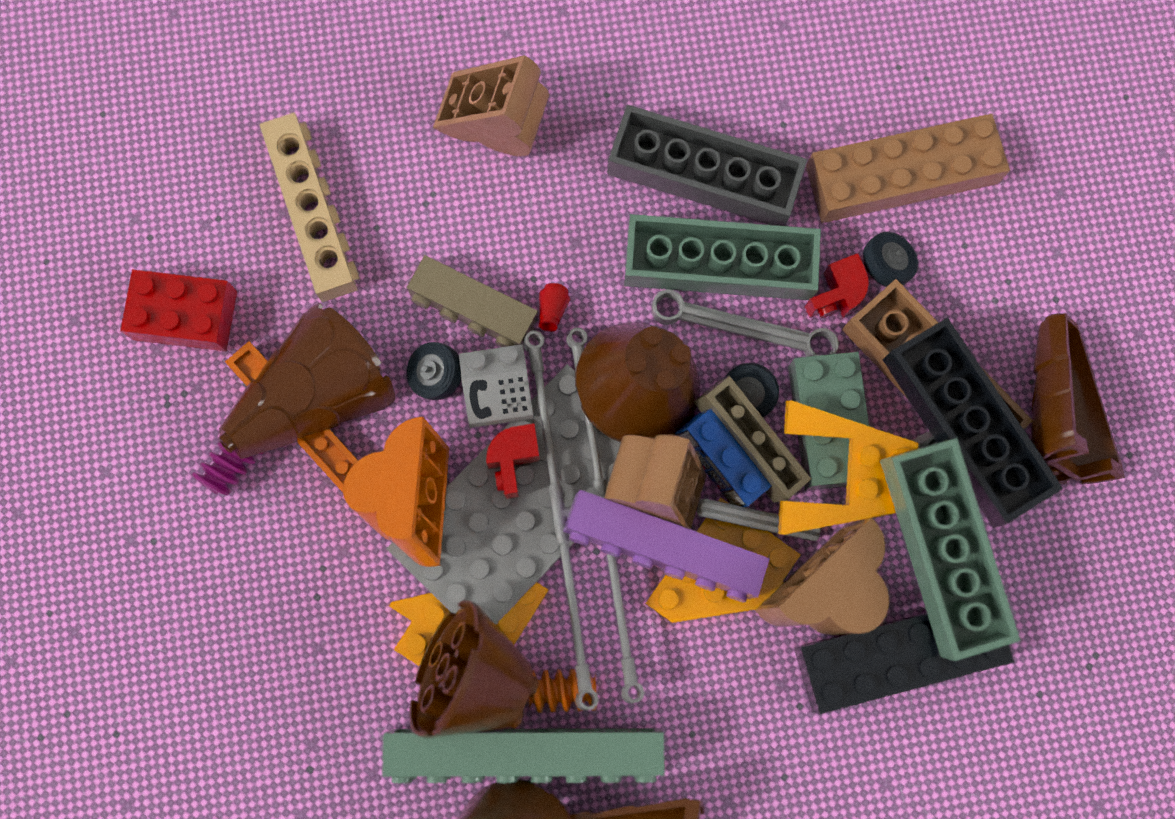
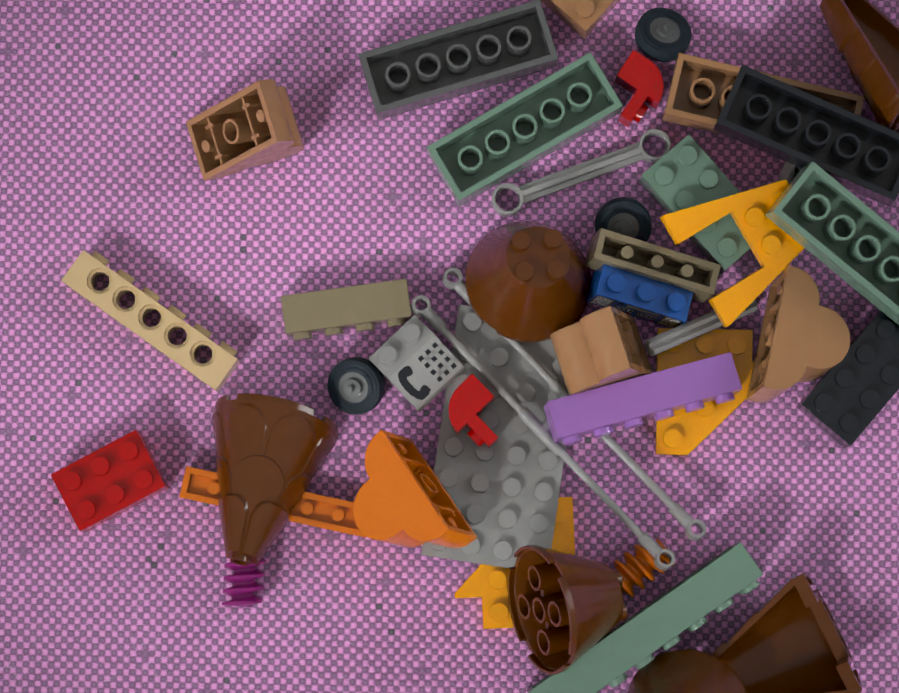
camera: 30 degrees left, 5 degrees up
(552, 305) = (413, 264): red cone -> none

